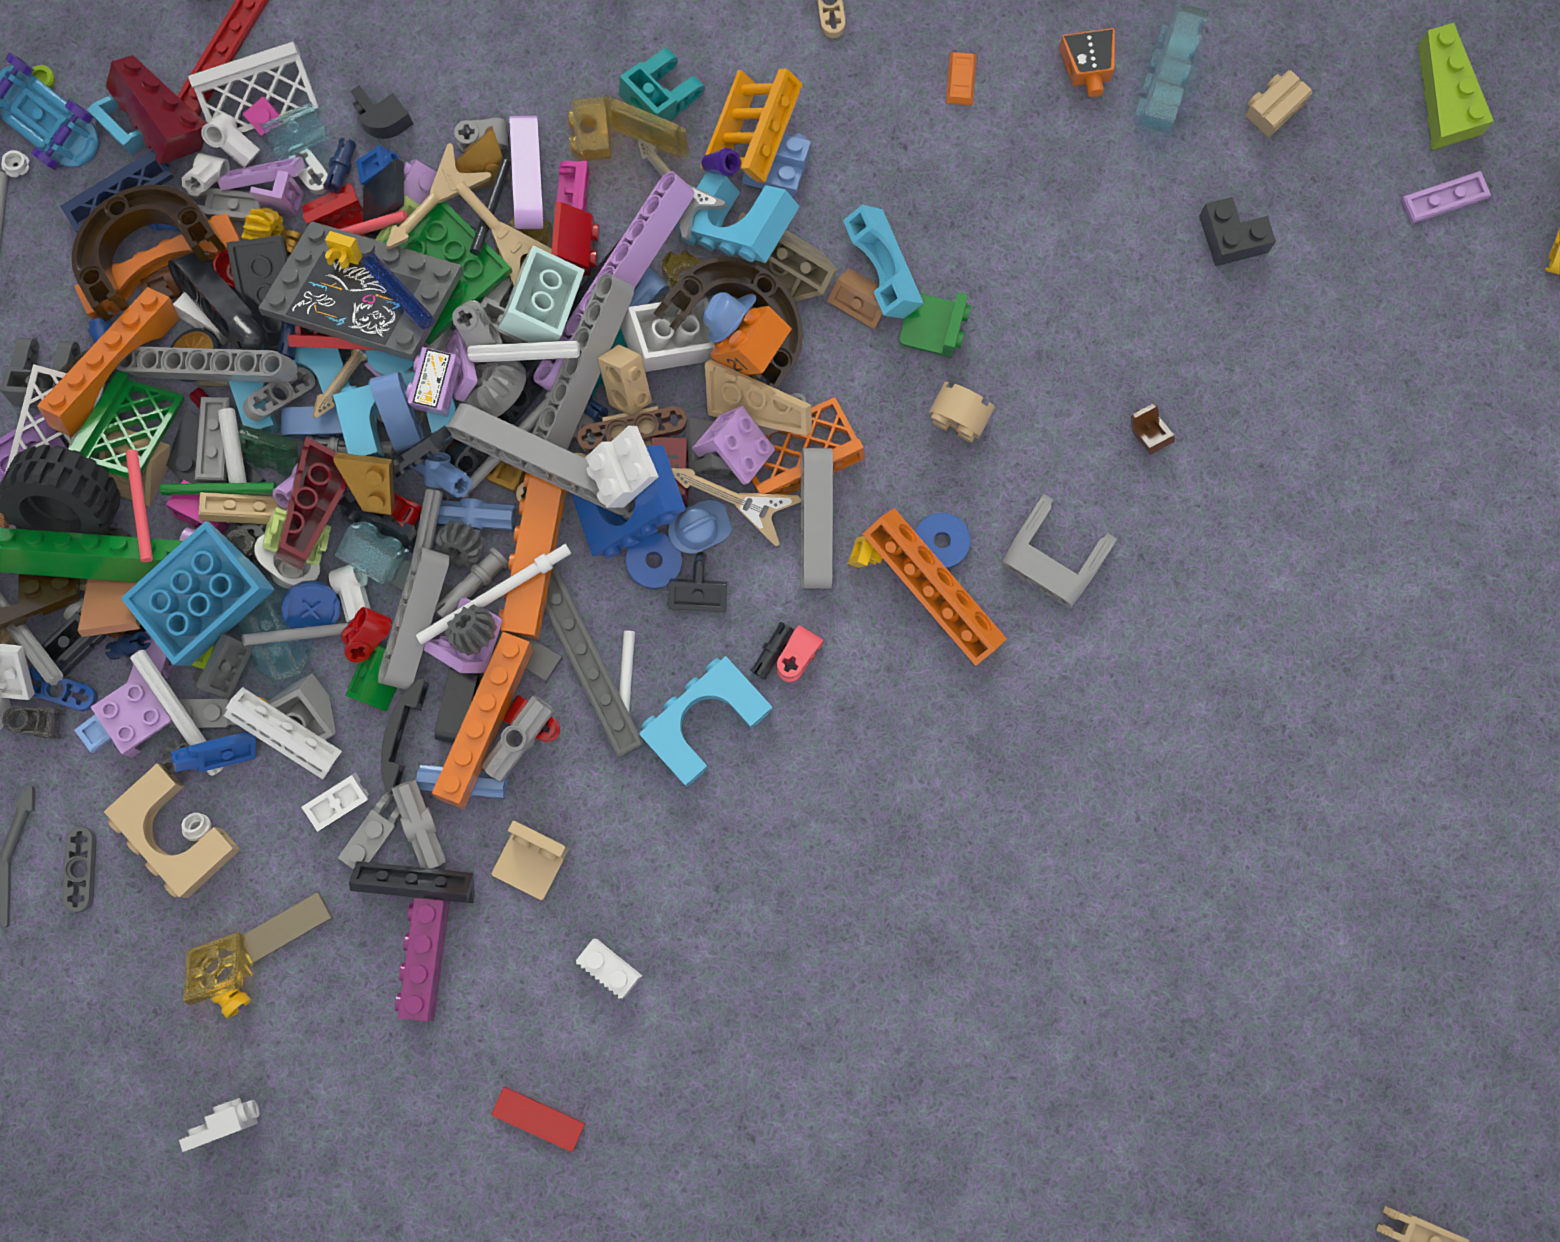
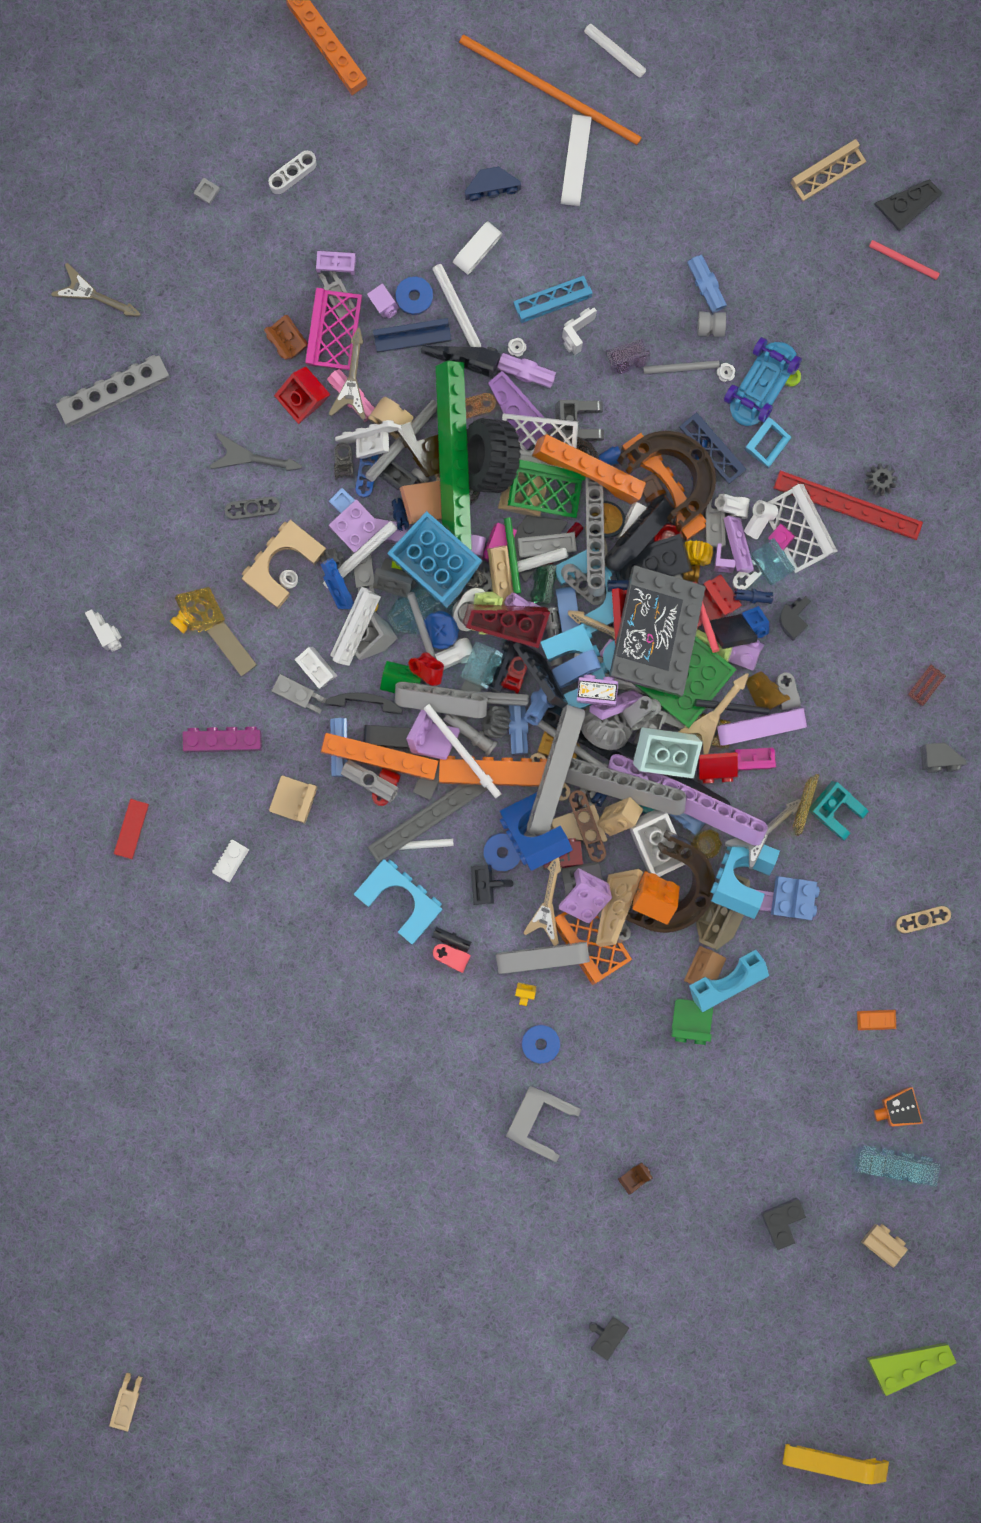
camera: 75 degrees right, 5 degrees up
(139, 506) = (489, 511): coral bar -> none
(155, 110) = (773, 465): dark red wedge -> none
(342, 248) = (683, 614): yellow tile -> none
(368, 480) = (525, 658): pearl gold wing -> none
(398, 291) = (655, 658): clear blue axle -> none
(412, 882) = (269, 726): black fence -> none
(418, 824) = (307, 724): light grey piece -> none
(439, 193) = (736, 670): tan piece -> none
(471, 630) = (434, 741): dark grey gear -> none
(524, 351) = (627, 749): white axle -> none
(585, 114) = (791, 770): clear yellow brick -> none
(621, 468) = (551, 825): white plate -> none
(700, 527) = (529, 883): medium blue piece -> none
(722, 162) = (783, 861): dark purple cone -> none
(725, 314) = (672, 879): medium blue piece -> none
(771, 124) = (811, 891): light orange fence -> none
(934, 586) = (506, 1042): orange brick -> none
(960, 410) = (629, 1046): tan brick -> none
(1377, 497) = (608, 1337): none -> black plate
(1446, 197) = (831, 1370): lavender tile -> none

